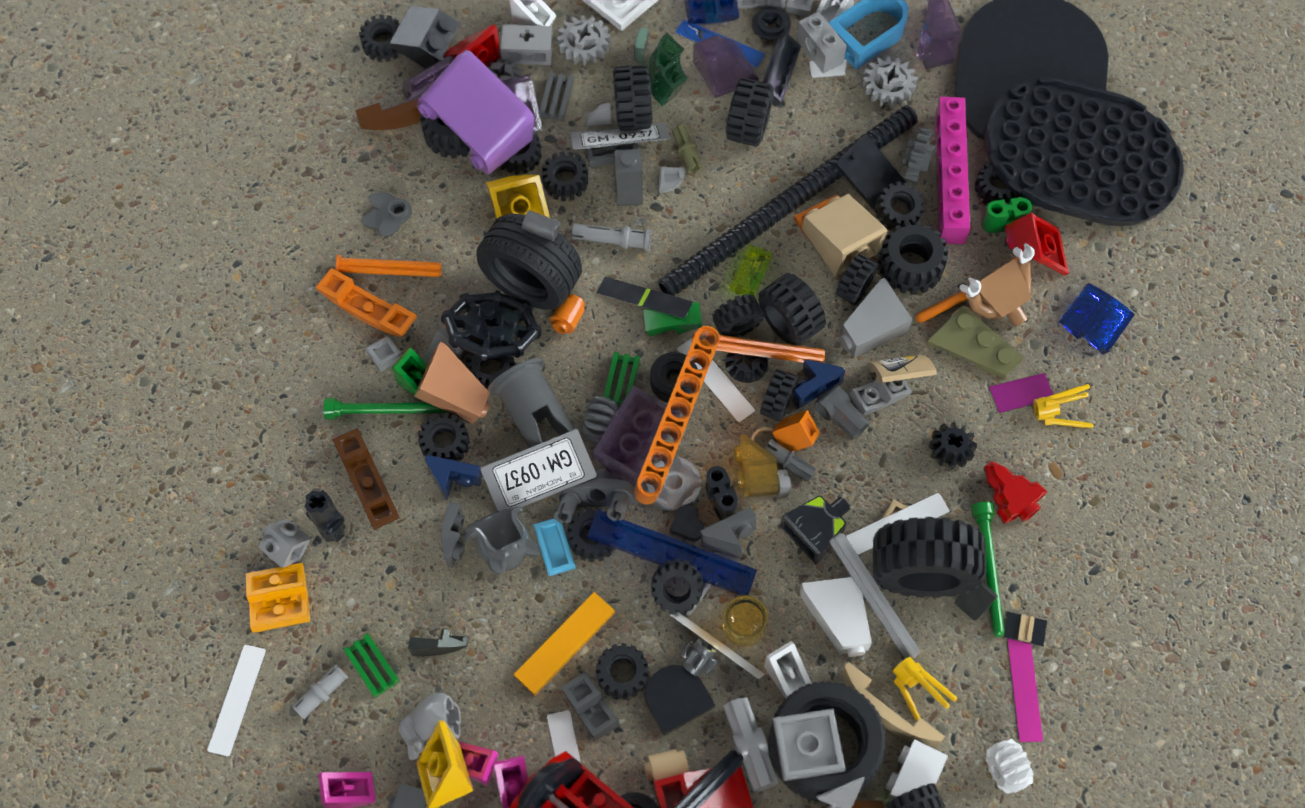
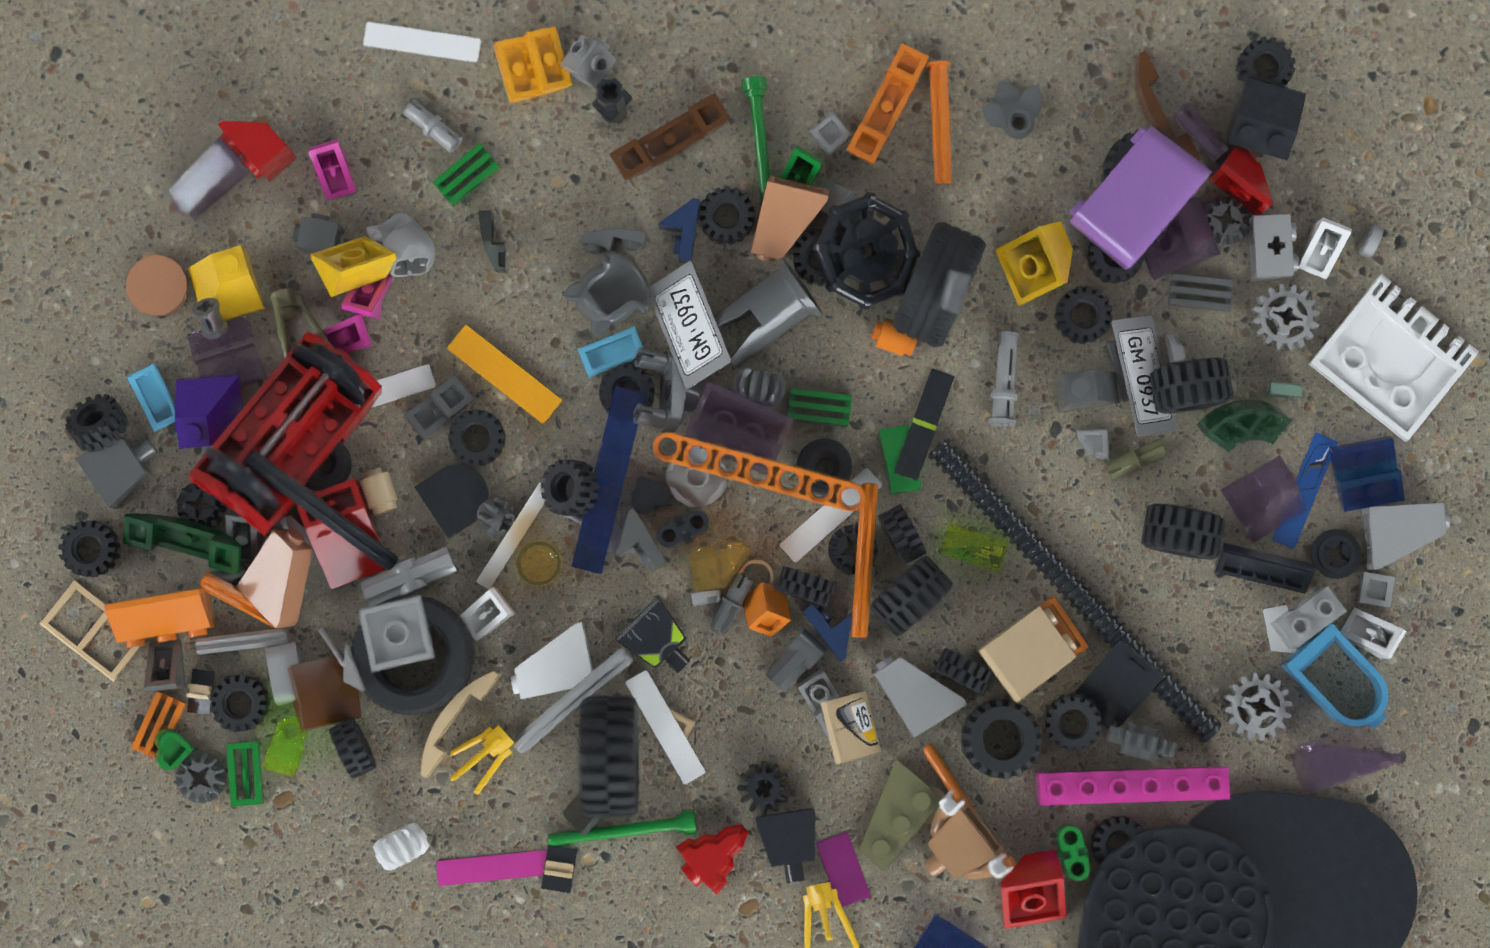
camera: 85 degrees right, 20 degrees up
(918, 768) = (391, 752): white slope -> none
(998, 428) = (789, 840): none -> black torso

